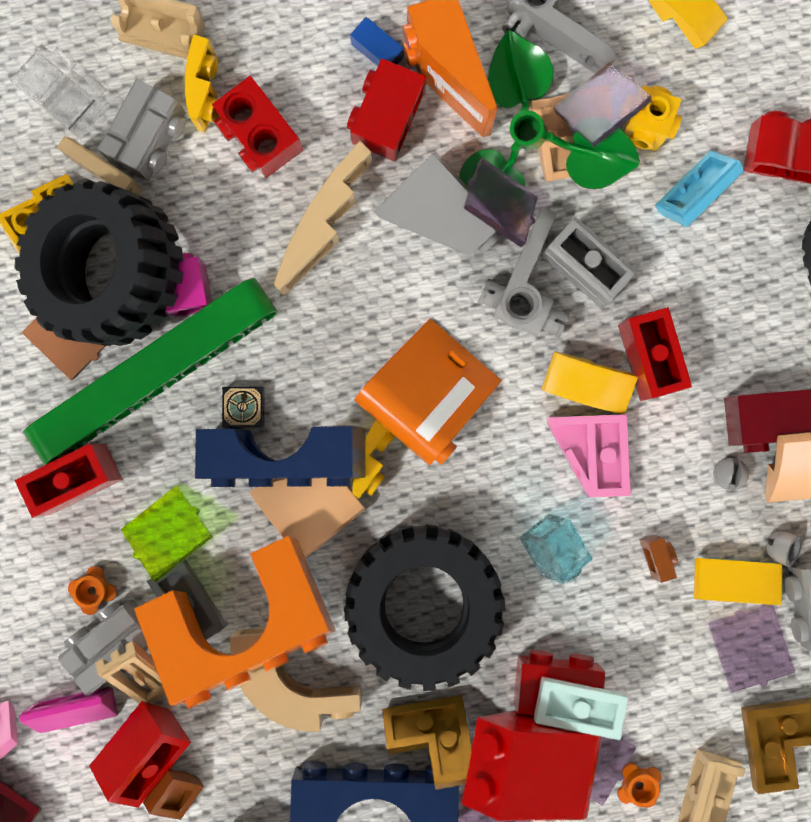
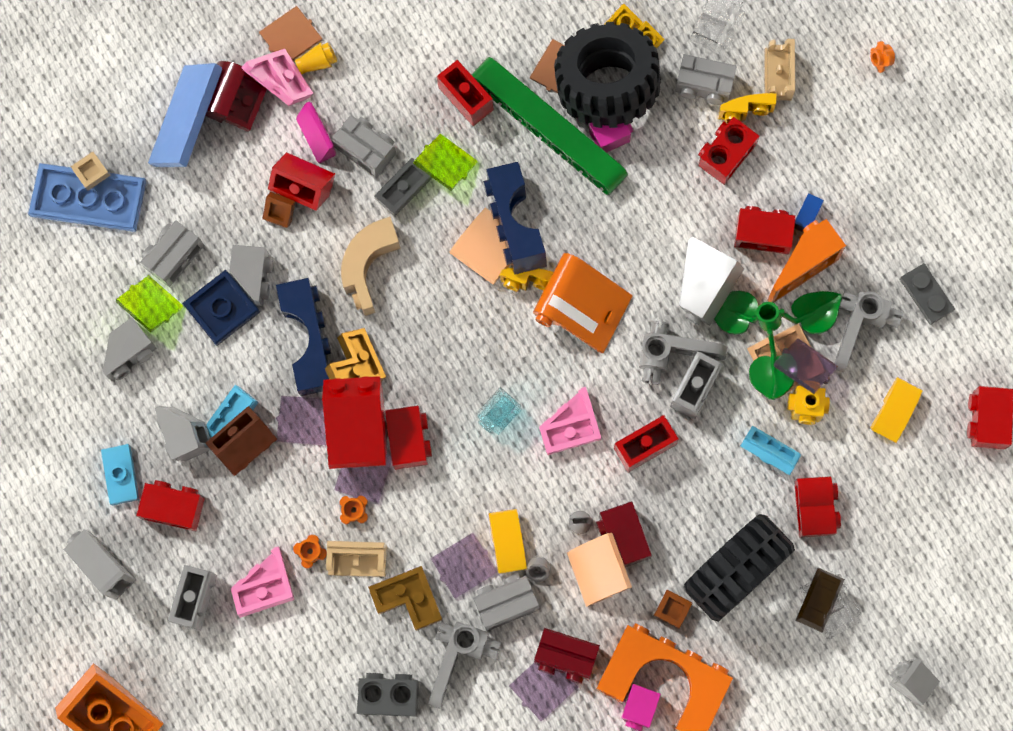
camera: 80 degrees right, 10 degrees down
(80, 590) = (396, 118): orange plate -> none
(97, 165) = (673, 59): tan tile -> none
(140, 666) = (361, 153): tan tile -> none
(194, 667) = (410, 250): orange arch -> none
(243, 406) = (540, 190): tile -> none
(315, 232) = (668, 204): tan slope -> none
(424, 661) = (434, 298): black tyre -> none
(501, 202) = (720, 316): piece -> none
(580, 708) = (399, 445): light aqua plate -> none
(589, 383) = (615, 408): yellow slope -> none
(659, 558) = (510, 484): dark orange plate -> none

